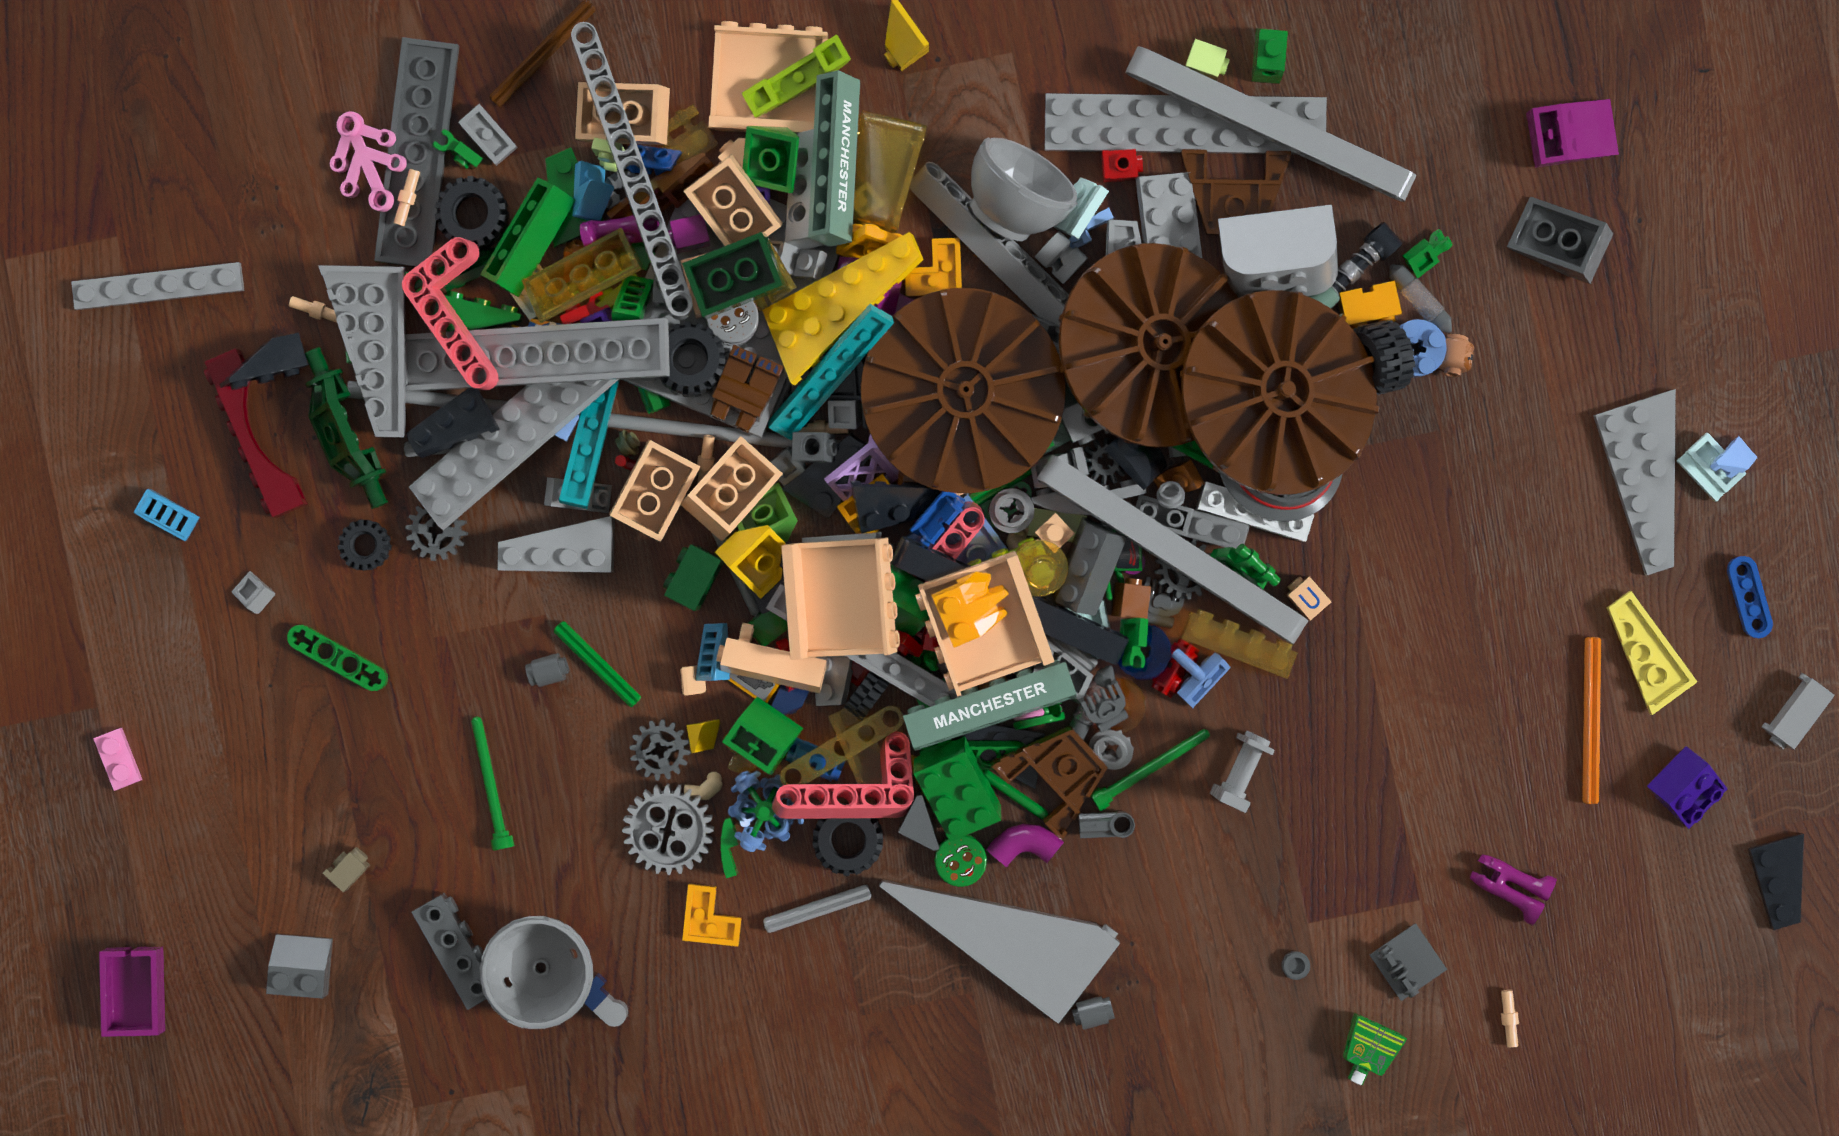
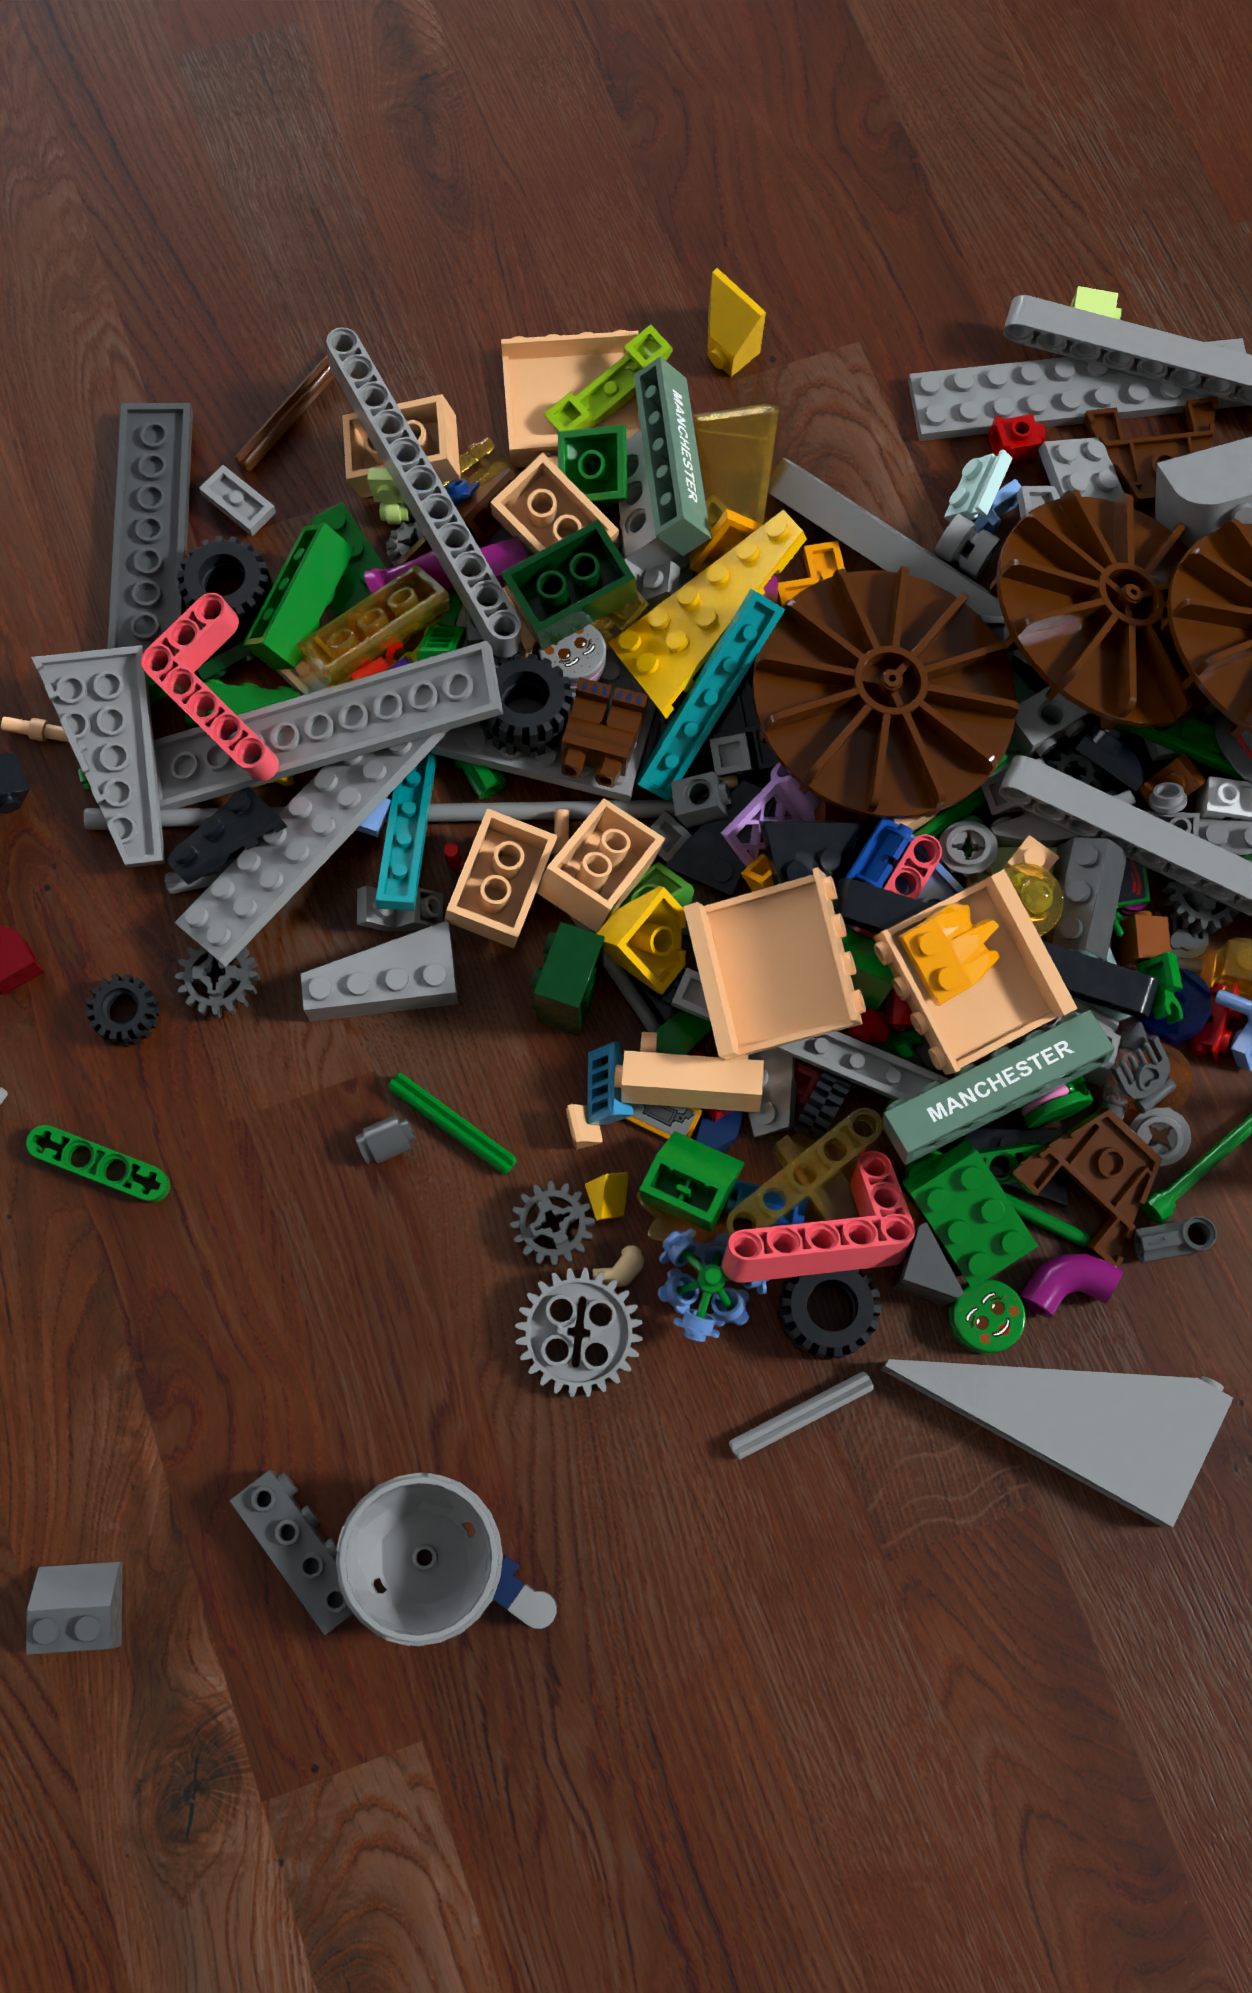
camera: 15 degrees left, 15 degrees down
(335, 434) = (75, 873): dark green plate -> none
(347, 869) = (134, 1454): dark tan brick -> none
(363, 159) = (65, 512): bright pink plant -> none
(406, 197) = (141, 576): light nougat bar -> none
(463, 155) = (205, 518): green plate -> none
(501, 837) = (347, 1378): green piece -> none
(590, 191) = (373, 541): dark azure slope -> none
(628, 443) = (457, 834): olive plate -> none
(702, 923) = (644, 1460): light orange plate -> none
(727, 841) = (665, 1334): green slope -> none
(1018, 190) = (903, 465): light grey piece -> none
(1093, 1012) = (1214, 1506): dark grey brick -> none
(1269, 55) = (1164, 285): green torso -> none

